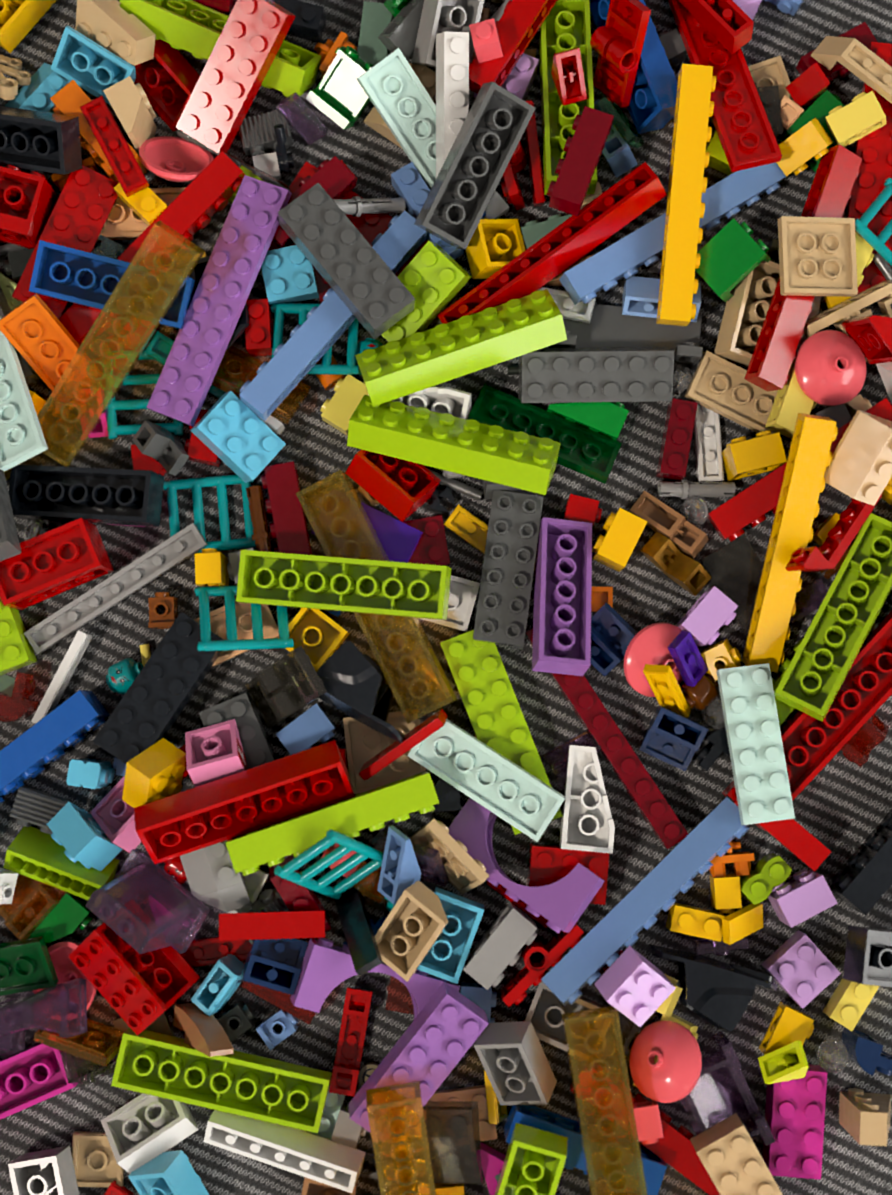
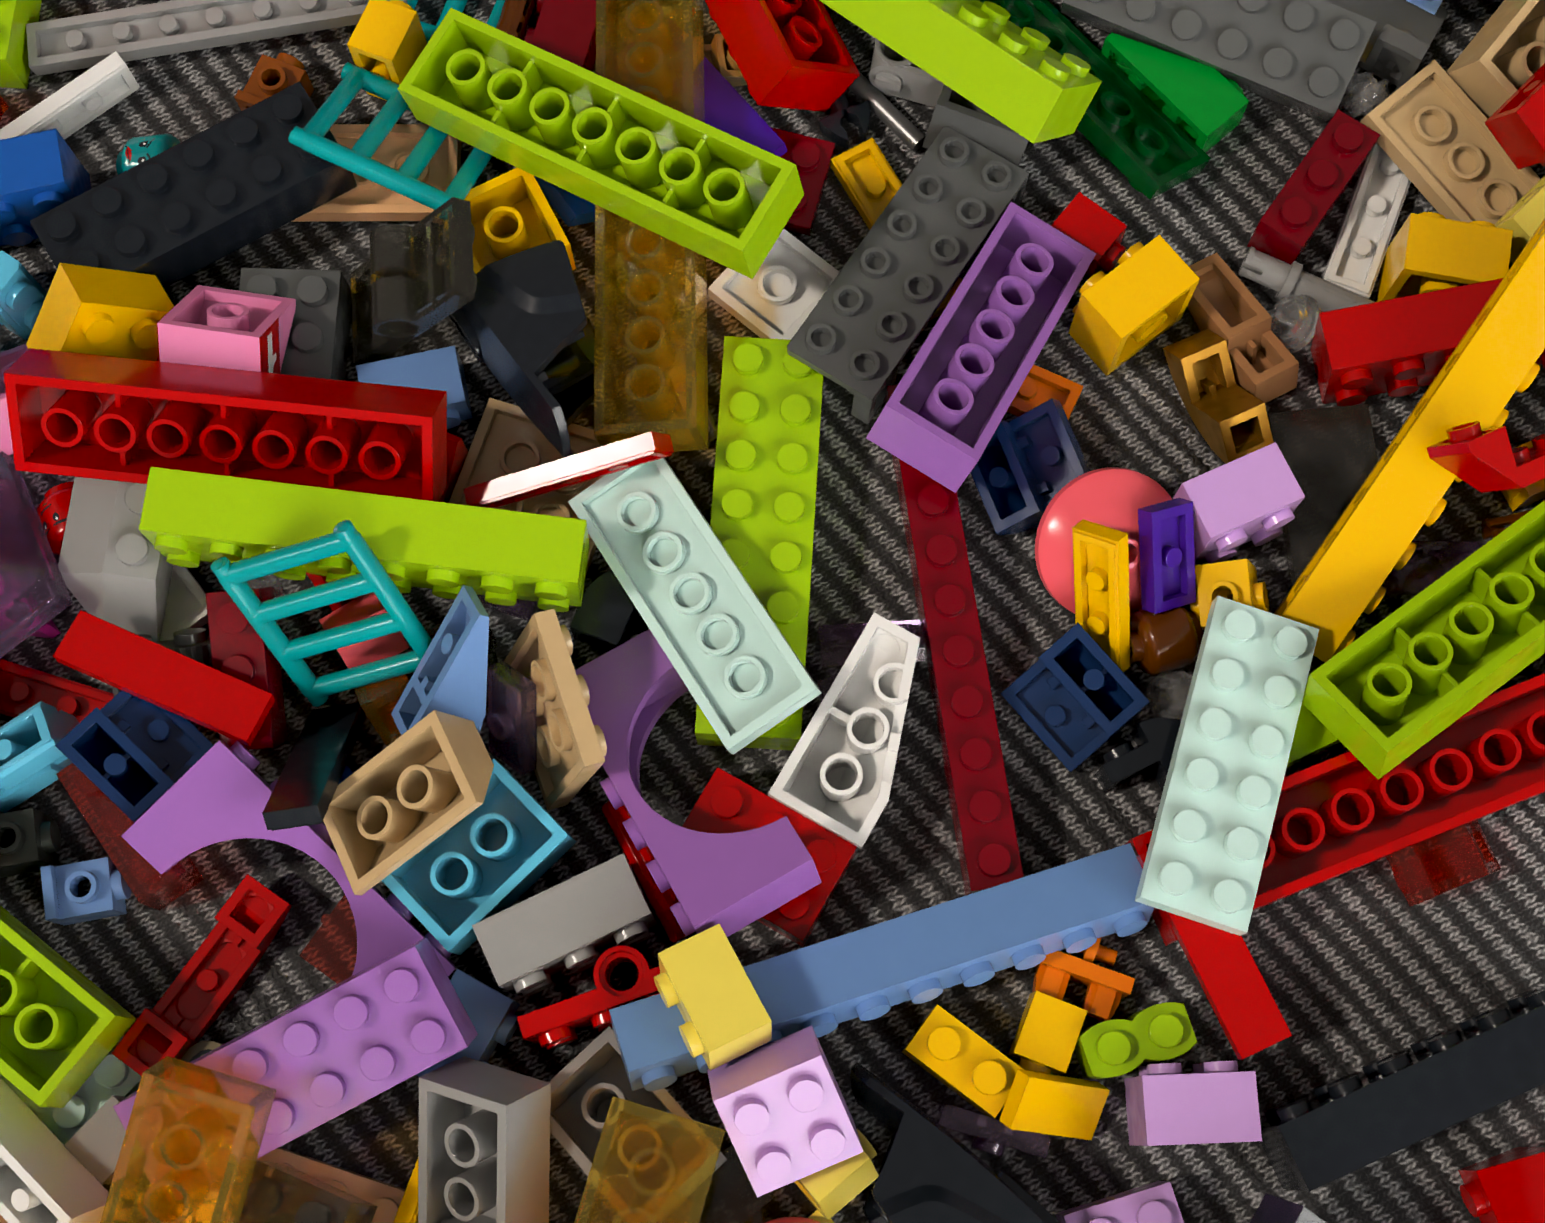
camera: 25 degrees right, 10 degrees down
(584, 955) = (713, 997): none -> light yellow brick

